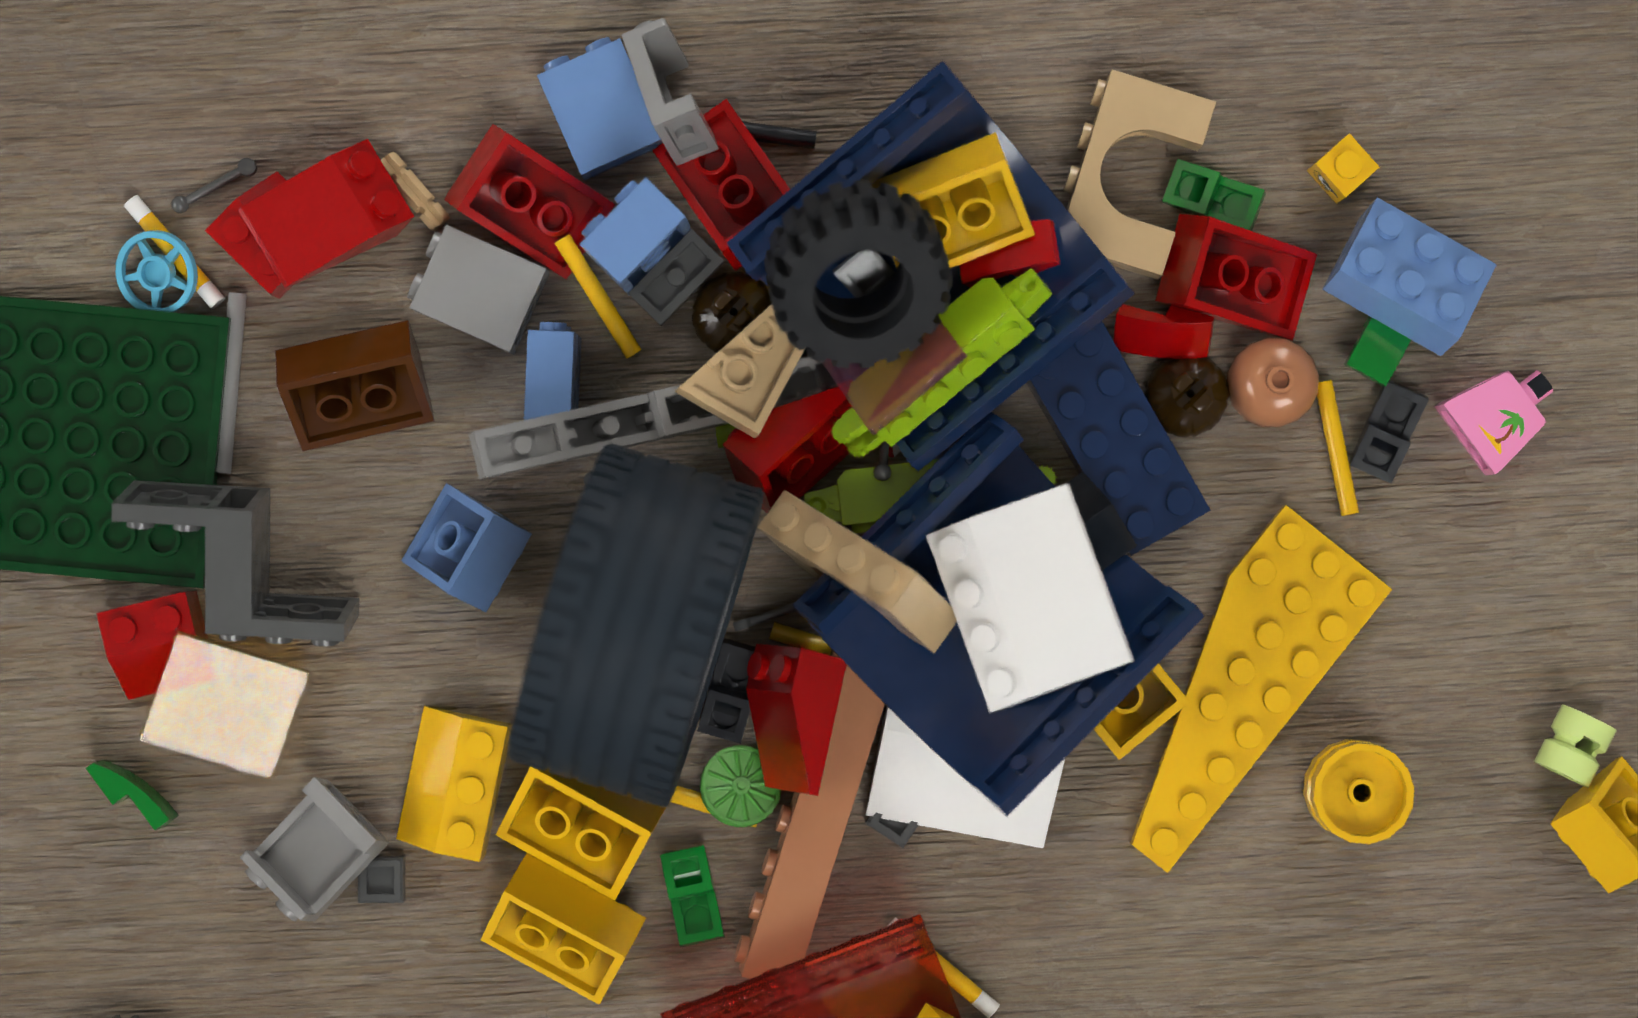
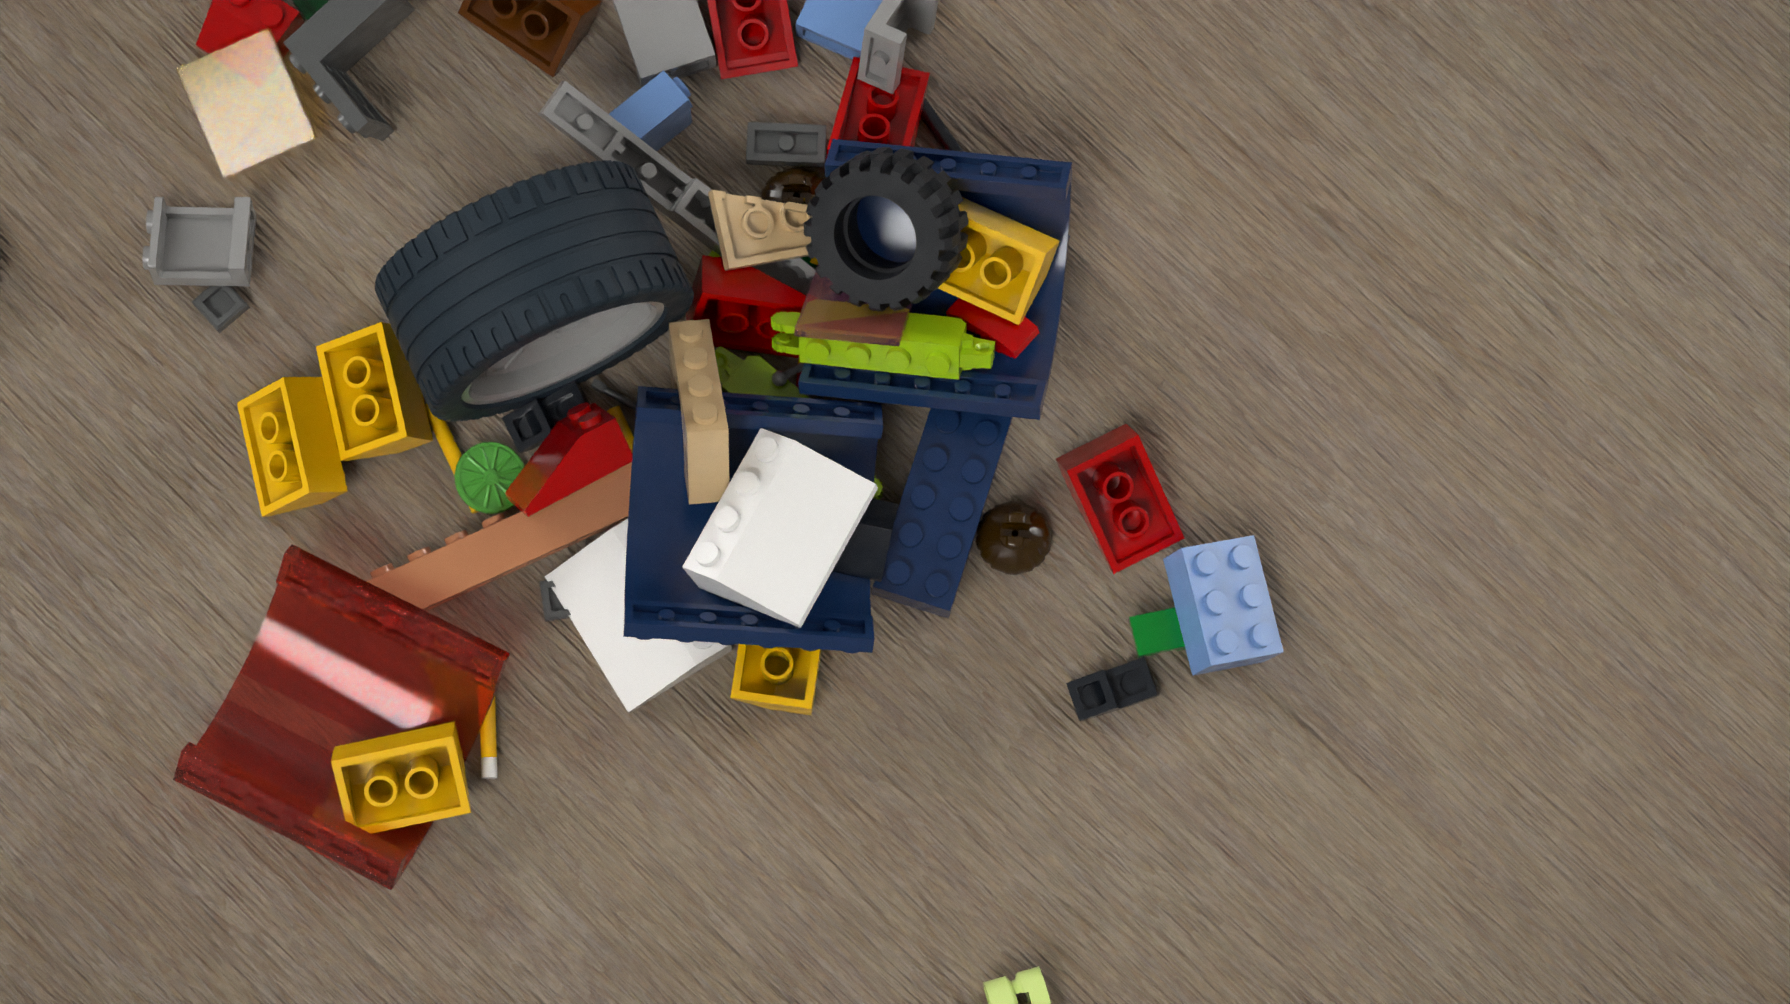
camera: 45 degrees right, 10 degrees down
(120, 784) = (136, 89): green slope -> none
(454, 783) = (324, 295): yellow slope -> none
(466, 548) = (485, 160): medium blue slope -> none
(597, 296) = (728, 106): yellow bar -> none
(634, 233) = (786, 84): medium blue brick -> none
(692, 896) = (389, 512): green slope -> none
(864, 272) = (896, 244): dark grey tile -> none
(1125, 110) = (1159, 330): tan arch -> none
(1173, 335) = (1040, 487): red slope -> none
(1210, 194) = (1159, 436): green slope -> none
(1268, 645) = (903, 738): yellow wing -> none
(1272, 382) = (1073, 585): nougat cylinder -> none
(1336, 448) = (1070, 666): yellow bar -> none
(1343, 168) = (1253, 501): yellow brick -> none
(1380, 808) = (851, 904): yellow wheel -> none
(1496, 417) = (1187, 749): bright pink torso -> none

